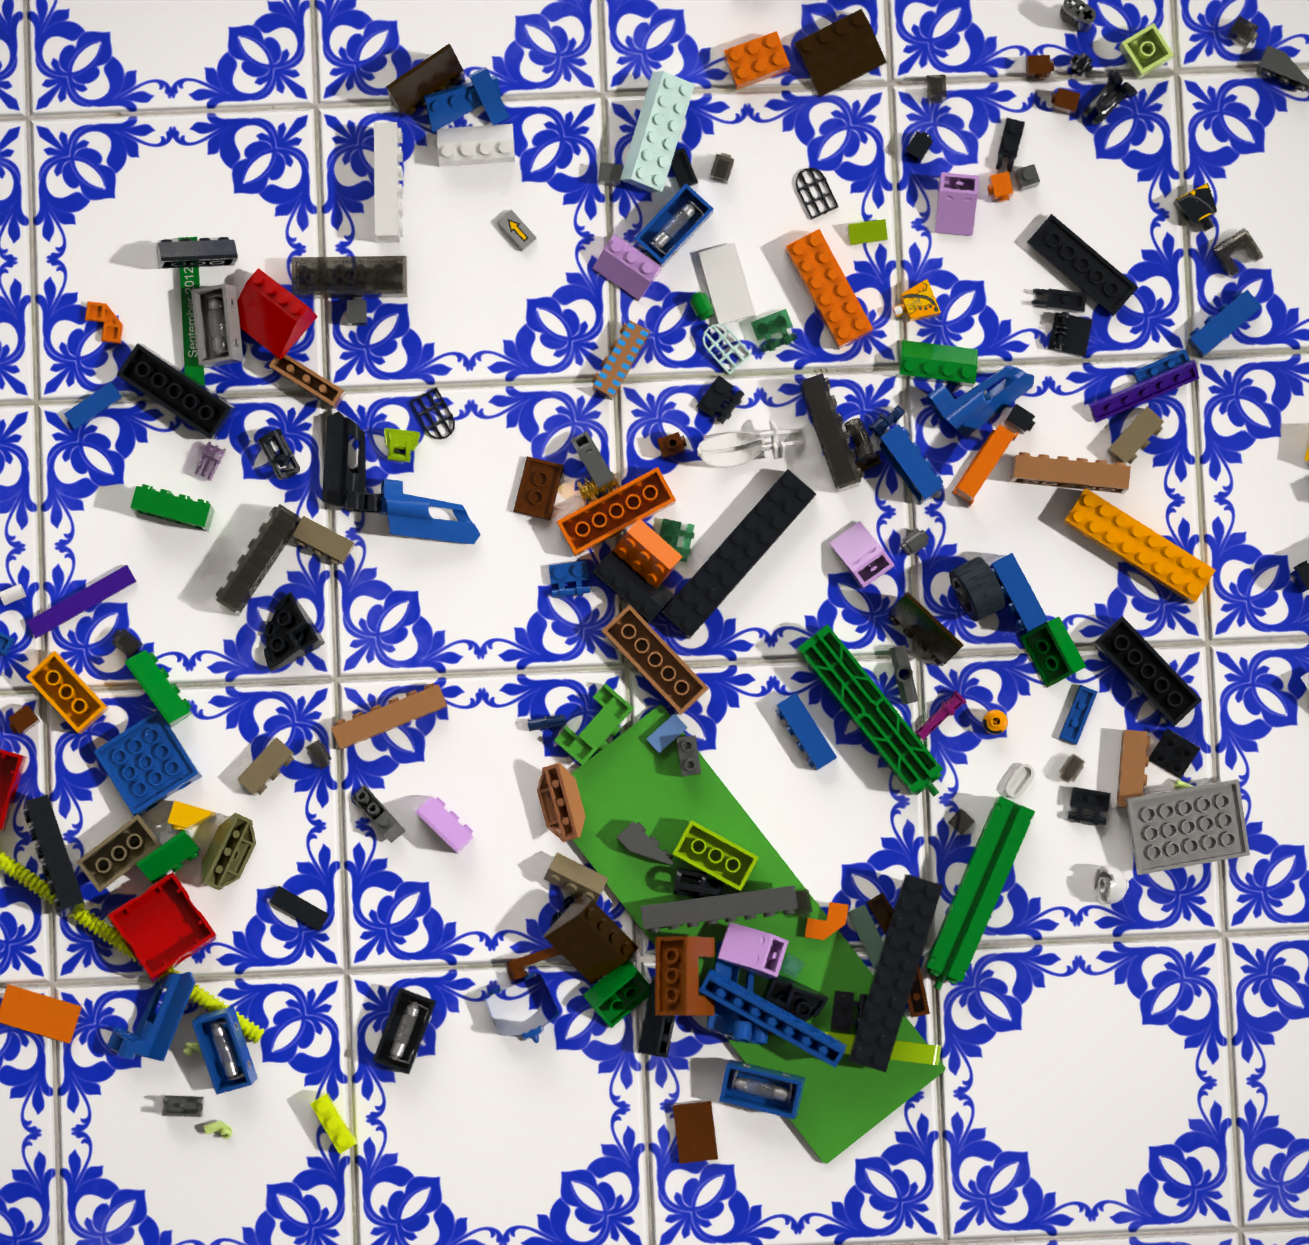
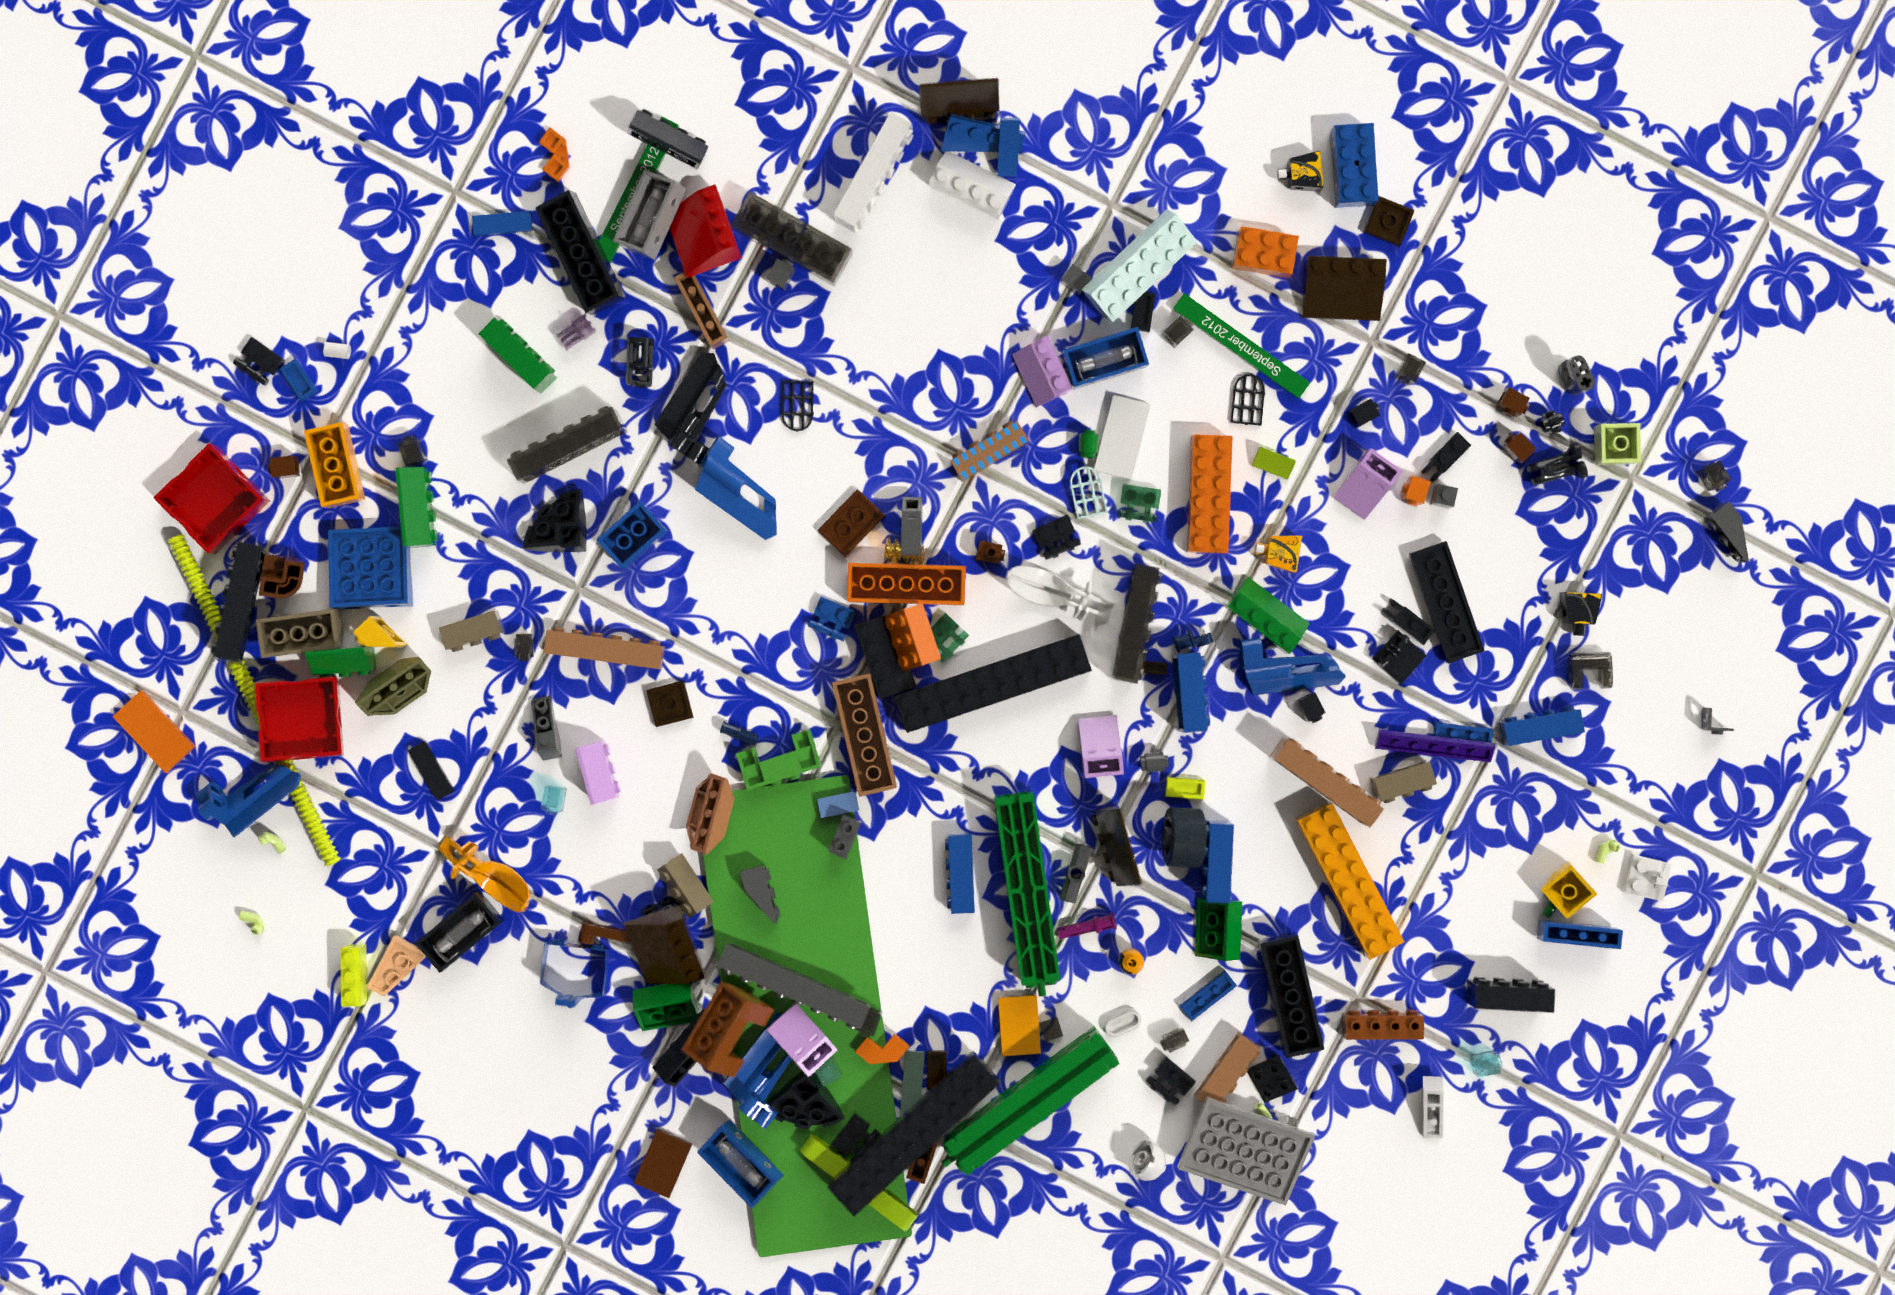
camera: 35 degrees right, 5 degrees up
(75, 813) = (281, 576): none -> reddish brown brick
(81, 601) = (394, 391): dark purple tile -> none
(183, 1106) = (232, 884): dark grey hinge -> none
(224, 1050) = (292, 859): blue piece -> none
(323, 541) = (635, 460): dark tan brick -> none
(358, 605) = (632, 535): none -> blue brick
(365, 1093) = (395, 965): none -> light nougat wing
(401, 440) = (755, 411): lime piece -> none
(408, 969) = (493, 877): none -> light orange piece
(419, 871) = (553, 799): none -> clear light blue brick
(472, 731) = (670, 703): none -> dark brown tile
(517, 230) = (964, 282): light grey tile -> none
(698, 878) = (793, 955): black piece -> none
(715, 855) = (817, 937): lime brick -> none
(773, 1018) = (783, 1111): blue brick -> none
(782, 150) = (1241, 346): none -> green tile
(864, 448) = (1159, 647): clear smoke connector -> none
(932, 833) = (1019, 1025): none -> light orange tile
(954, 549) = (1185, 788): none -> neon yellow tile
(983, 463) = (1255, 729): orange piece -> none
(1241, 653) = (1382, 1025): none -> dark orange brick

